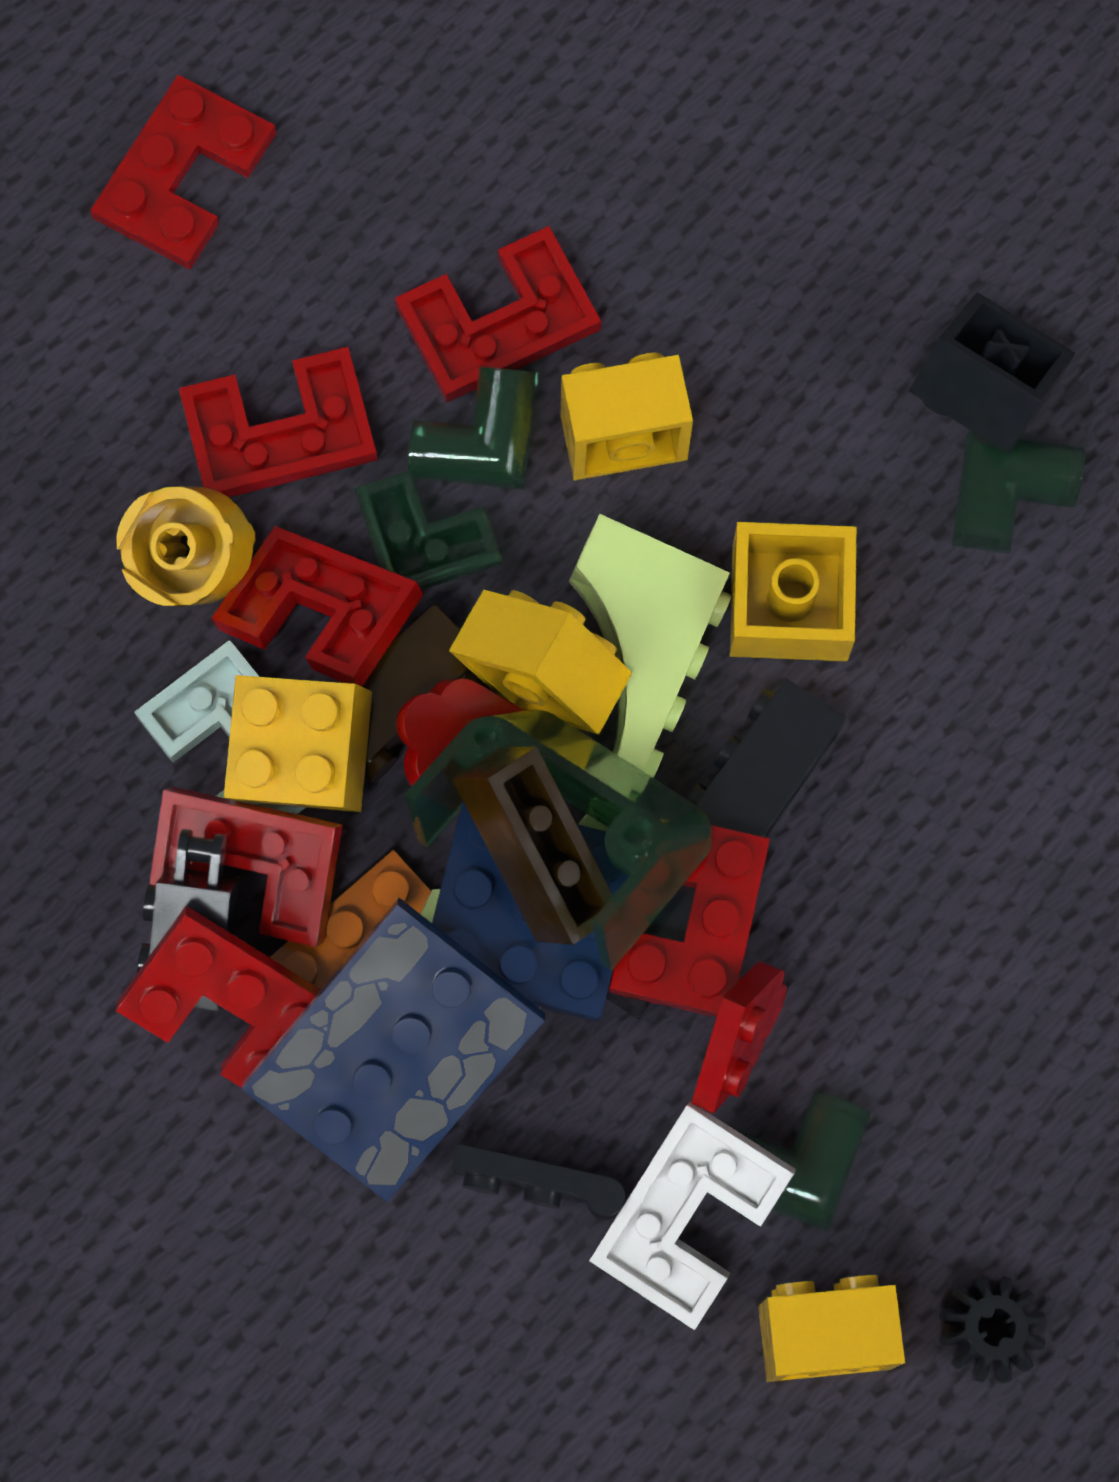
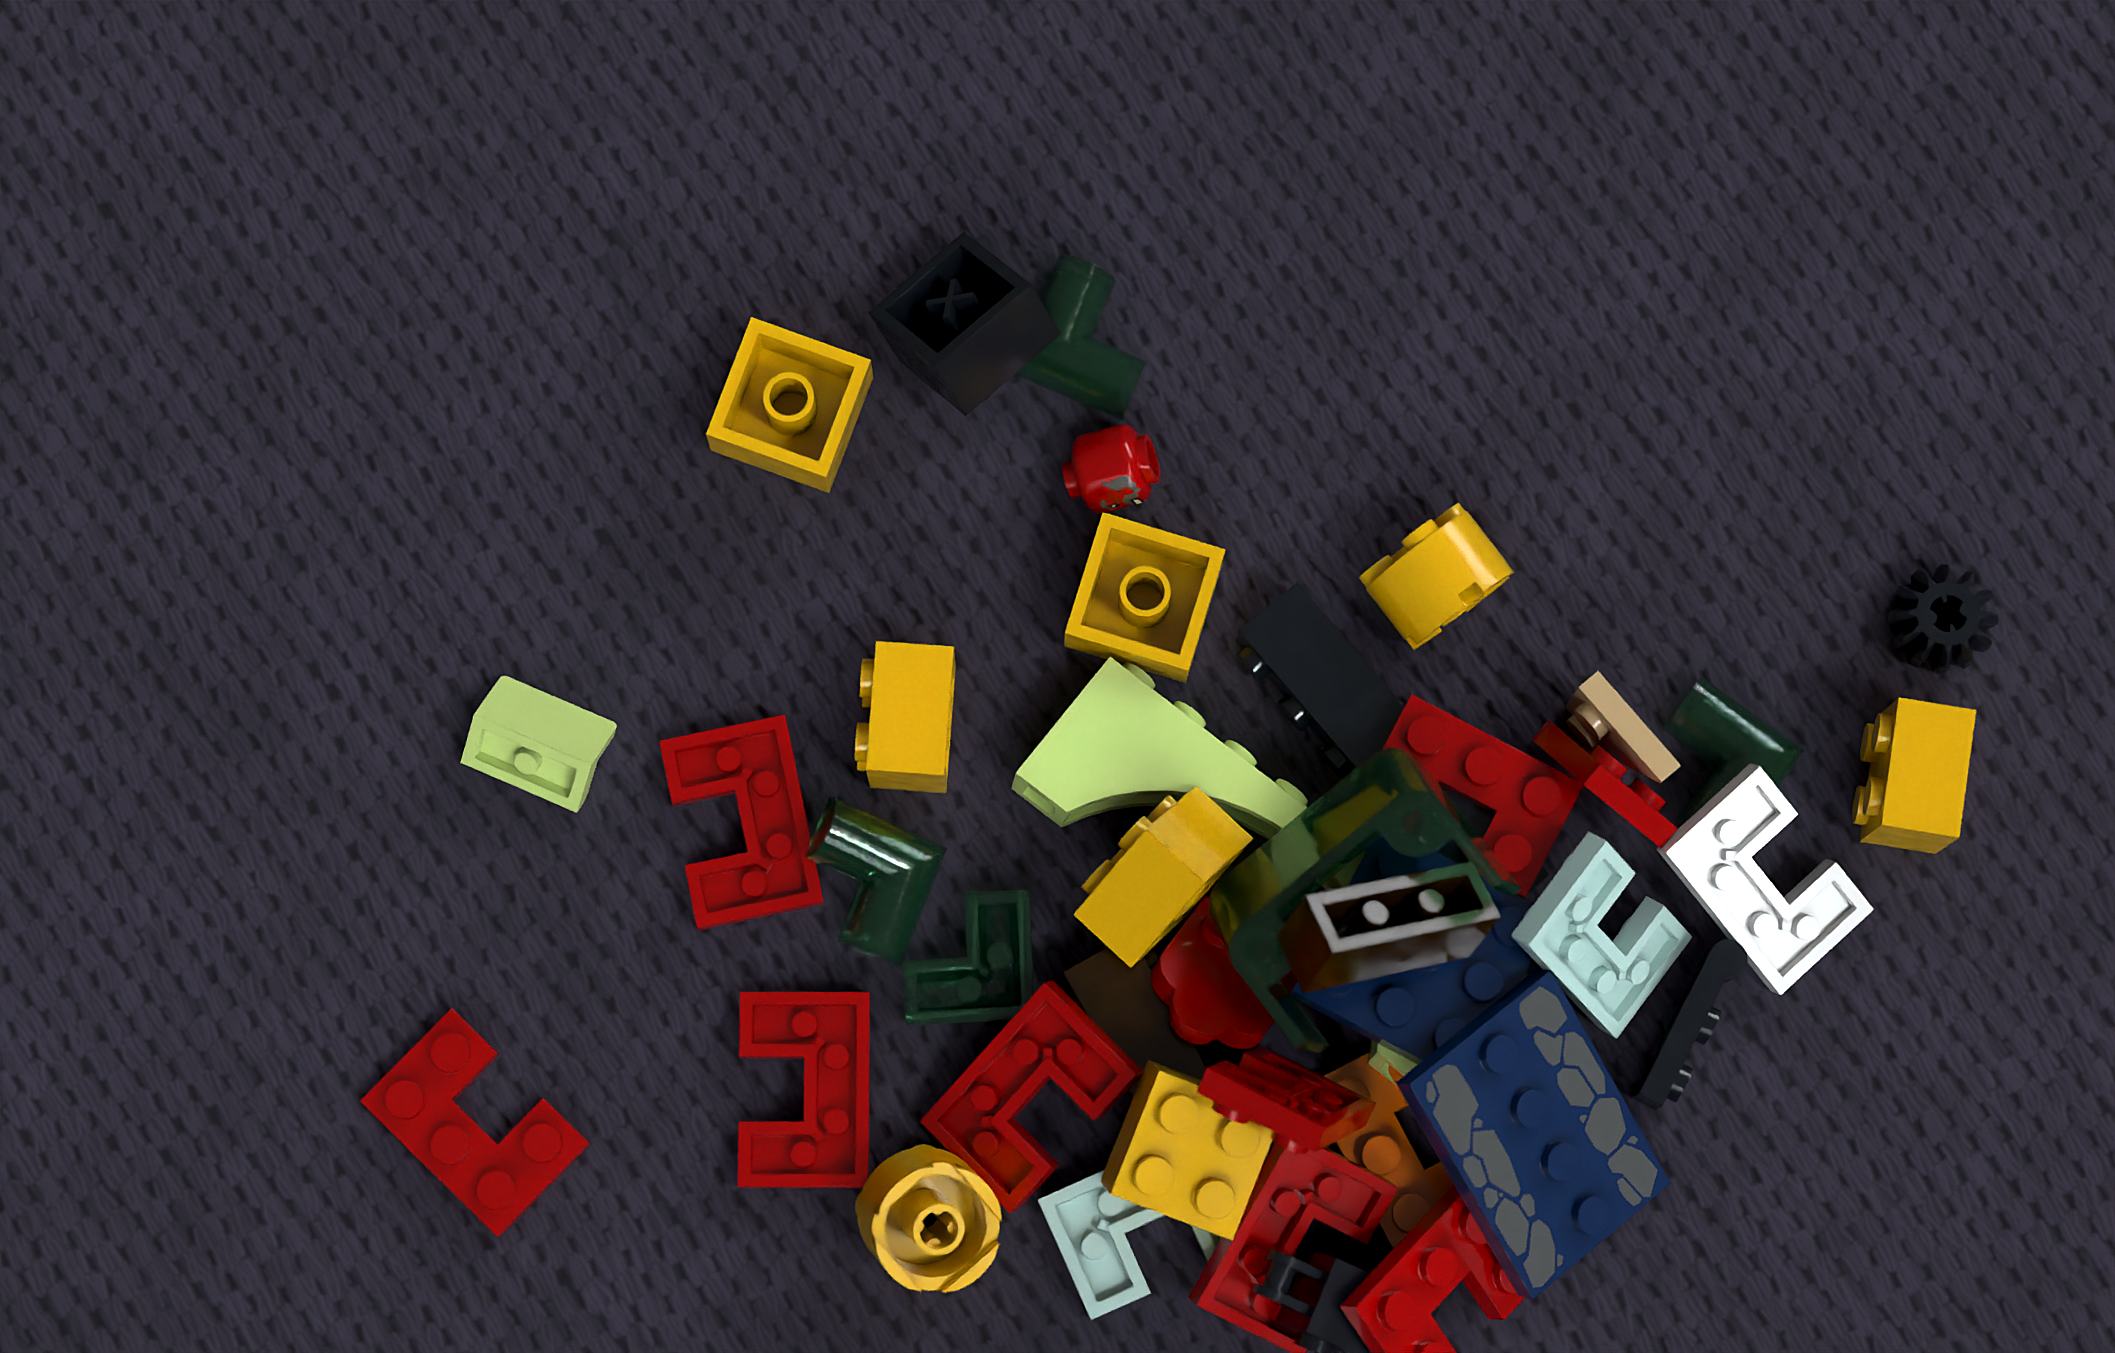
camera: 75 degrees left, 5 degrees up
(360, 829) = (1286, 1098): none -> red plate
(522, 133) = (537, 742): none -> yellowish green panel
(579, 1028) = (1563, 936): none -> light aqua plate
(795, 1027) = (1608, 721): none -> tan wing
(875, 252) = (790, 404): none -> yellow brick
(888, 840) = (1436, 575): none -> yellow brick
(903, 539) = (1112, 468): none -> red head

